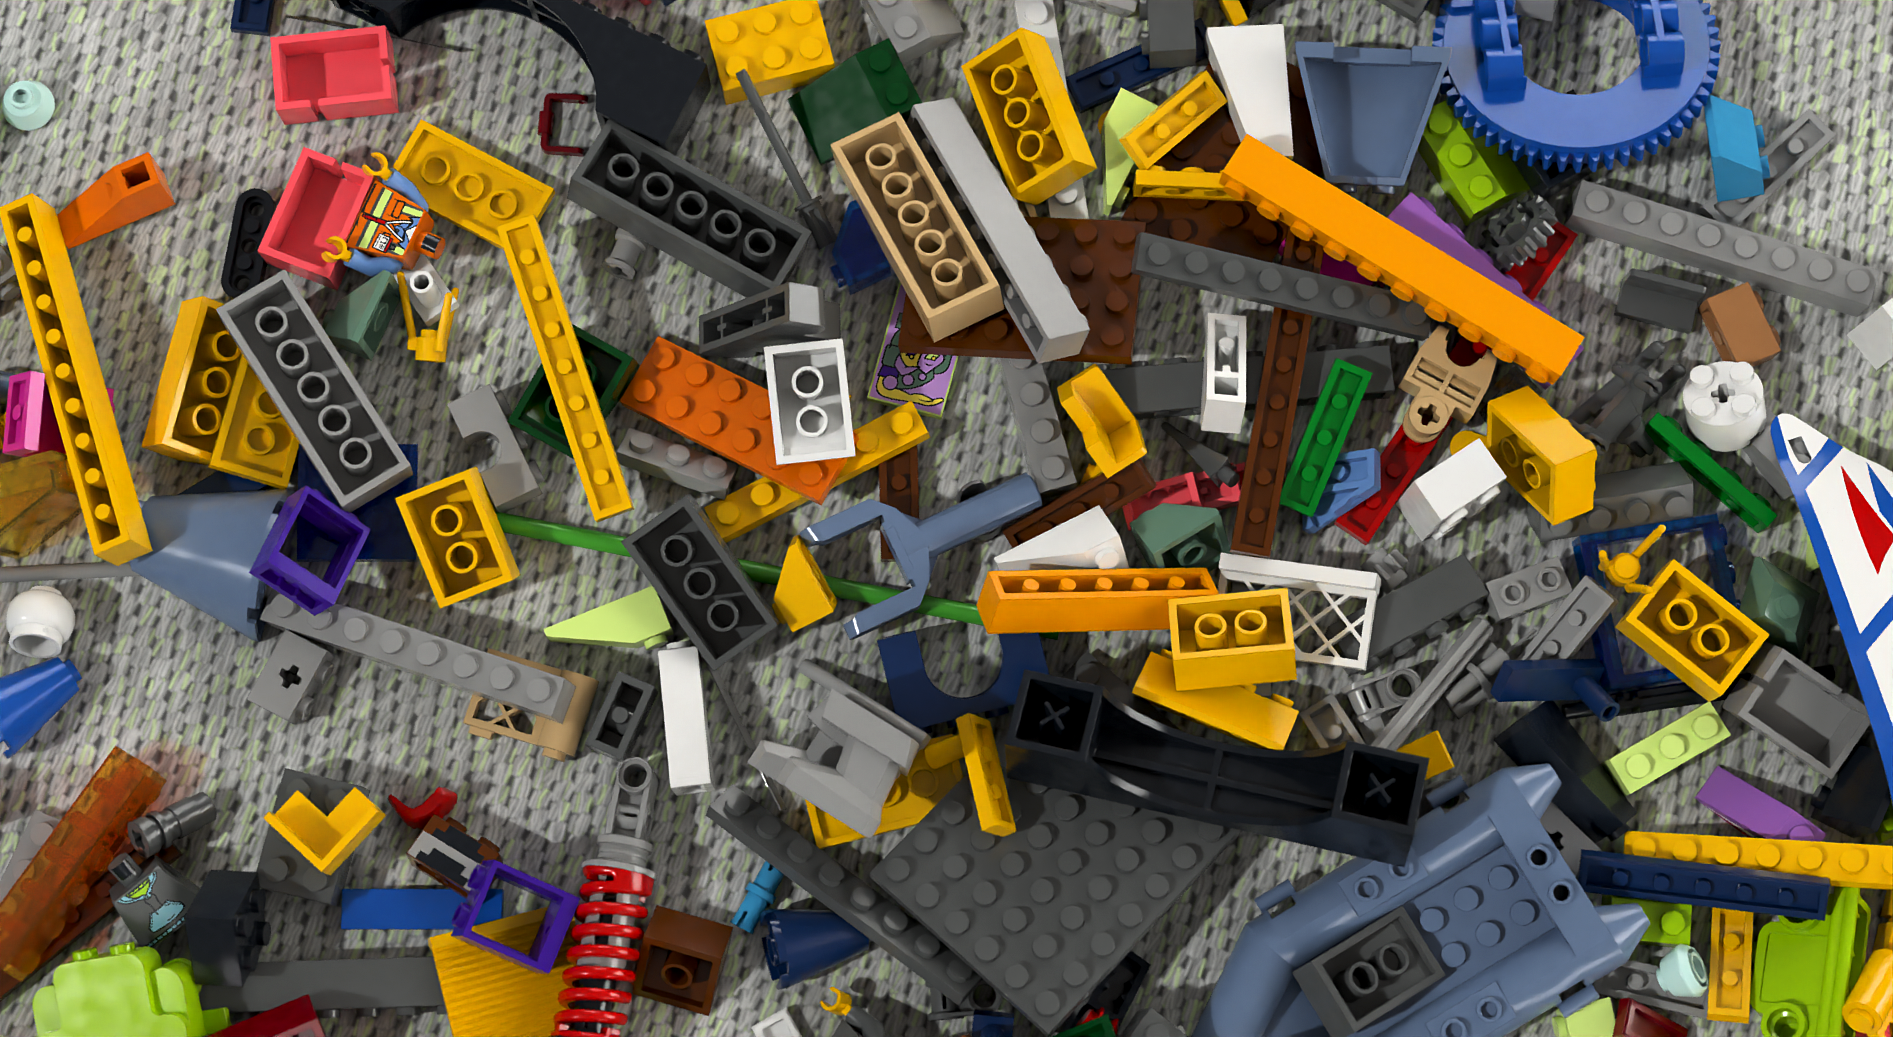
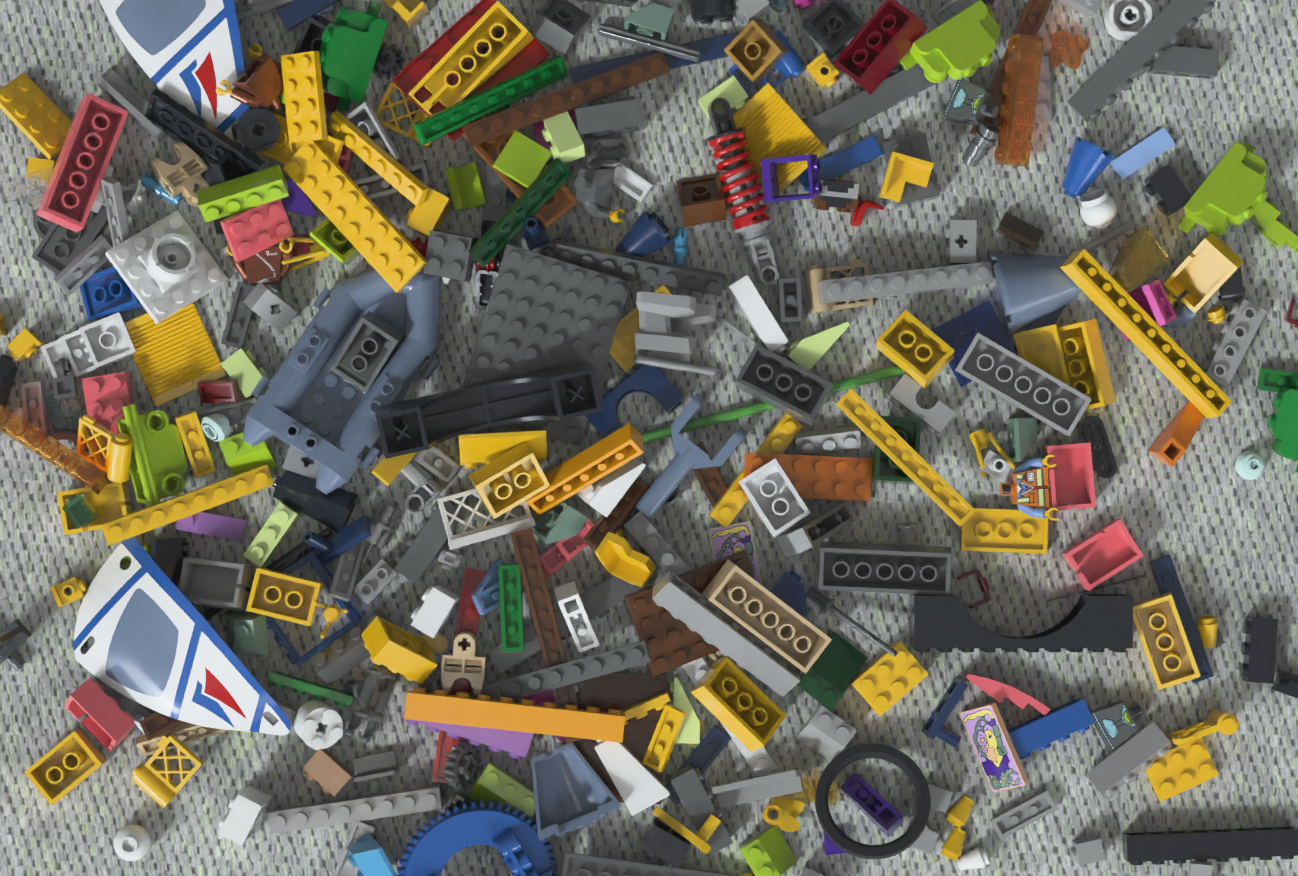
camera: 155 degrees right, 10 degrees up
(187, 650) = (1019, 231): none -> dark brown panel
(227, 928) = (925, 106): black brick -> none
(291, 578) = (987, 284): dark purple window -> none
(802, 589) = (732, 406): yellow slope -> none
(979, 748) = (600, 359): yellow piece -> none
(1212, 462) = (560, 568): dark grey piece -> none
(1434, 685) = (400, 505): light grey axle -> none
(1704, 884) = (225, 472): dark blue tile -> none

